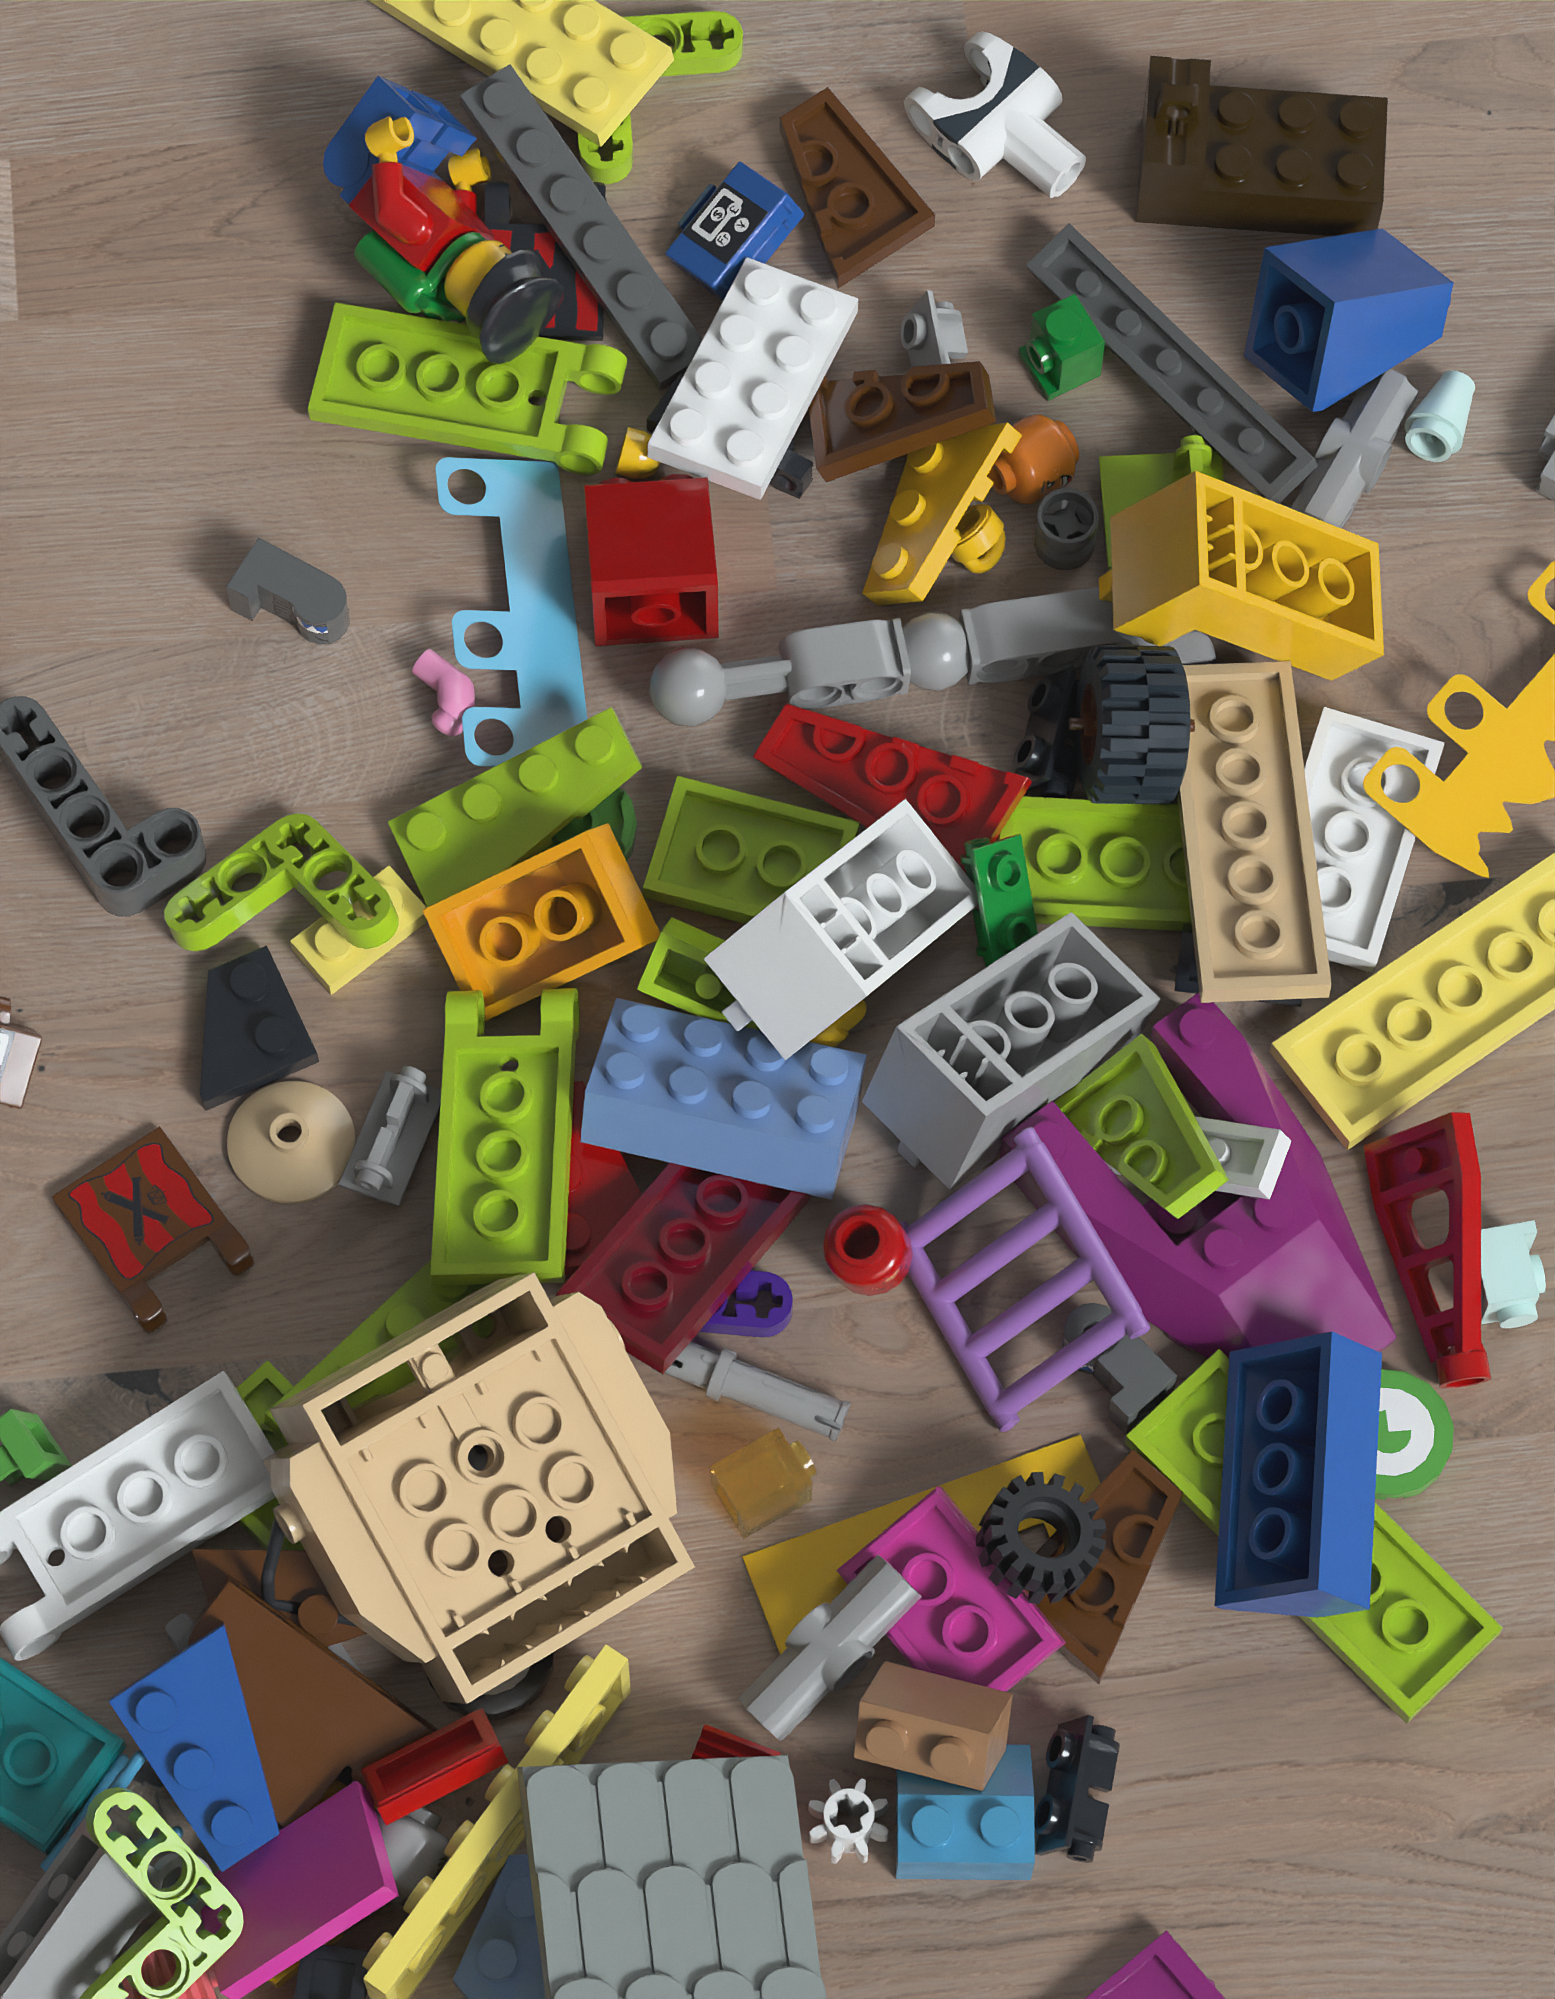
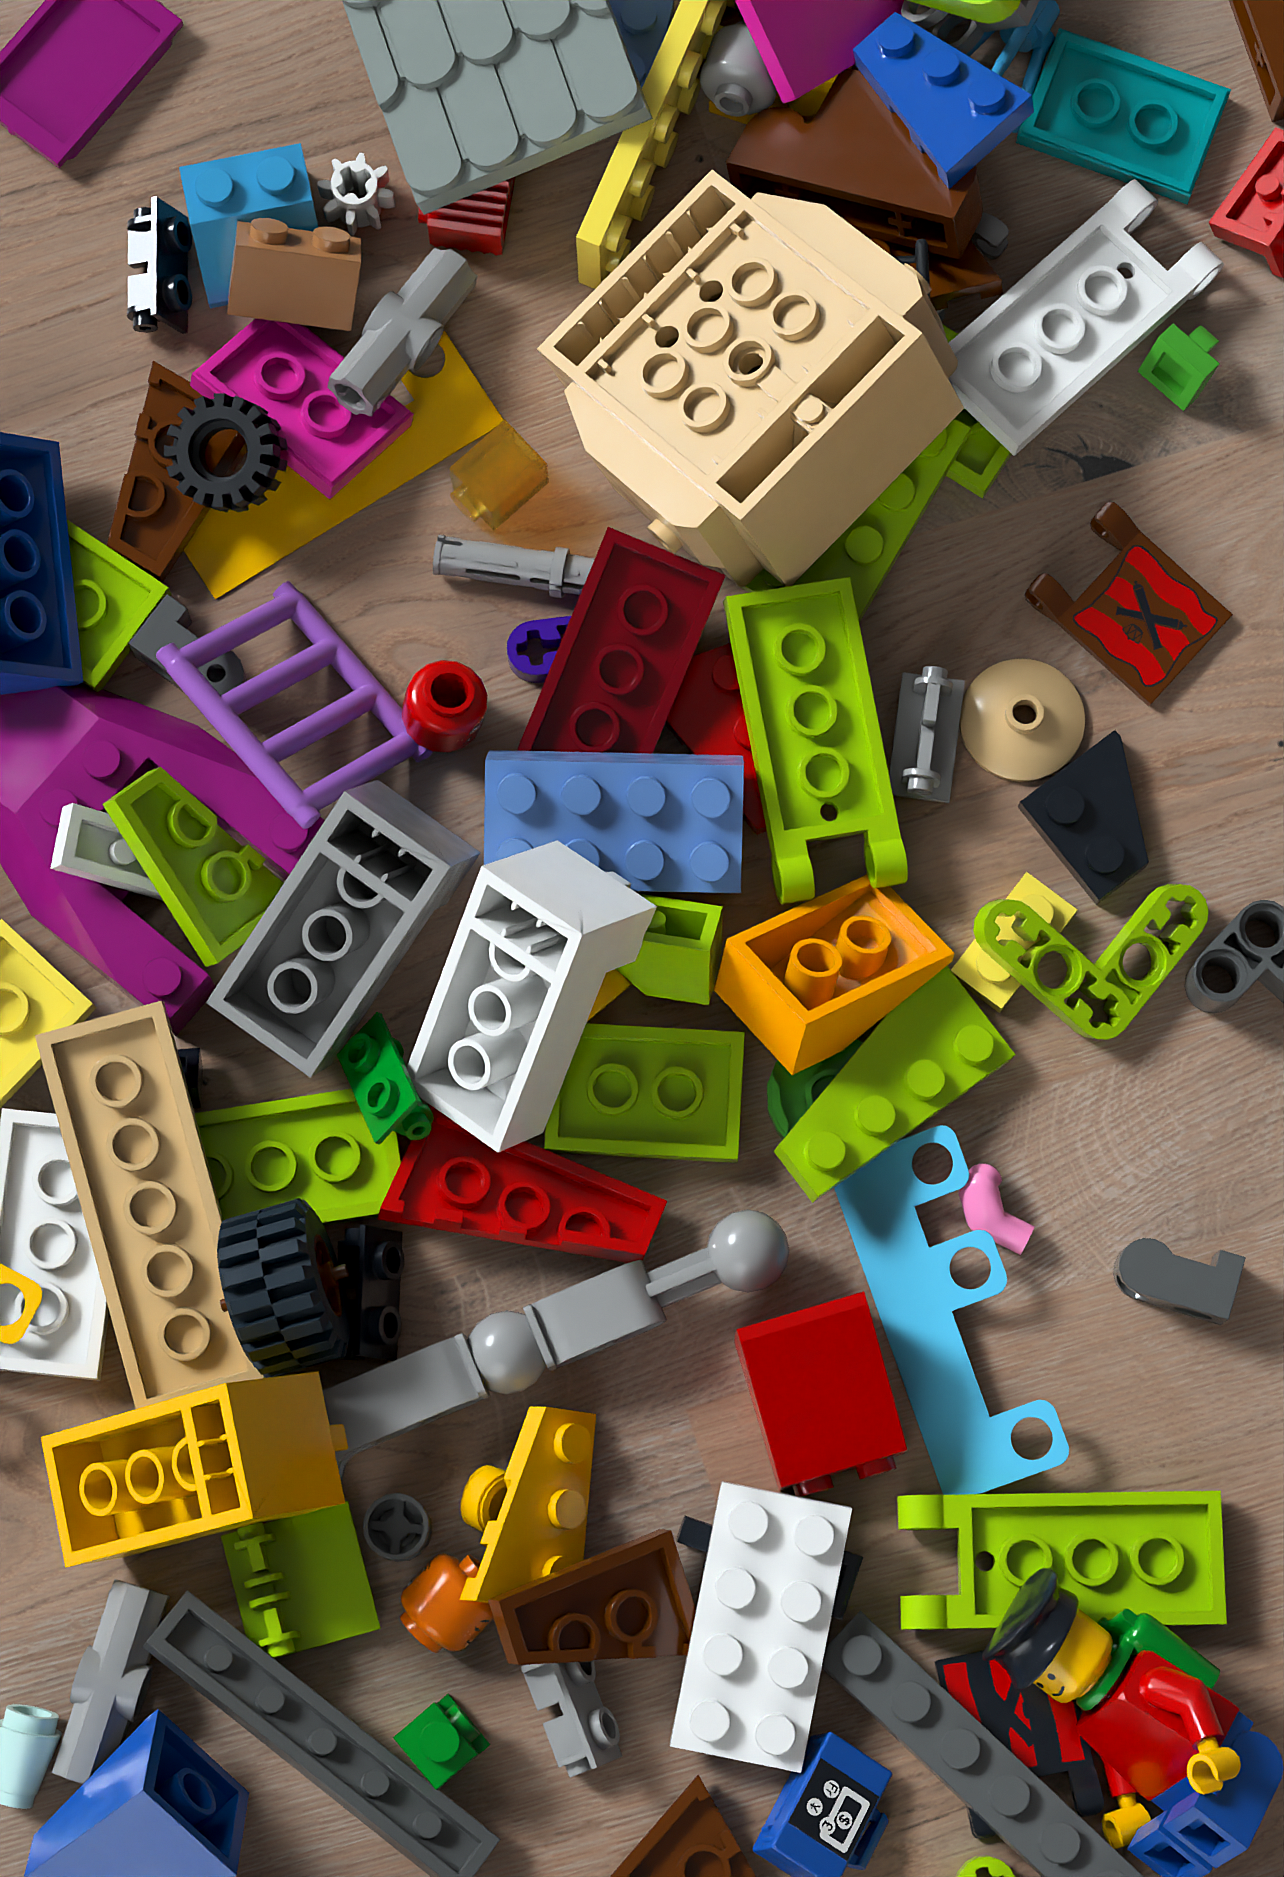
camera: 170 degrees right, 10 degrees up
(434, 1766) = (729, 123): red tile -> none
(633, 456) = (867, 1521): yellow hinge -> none

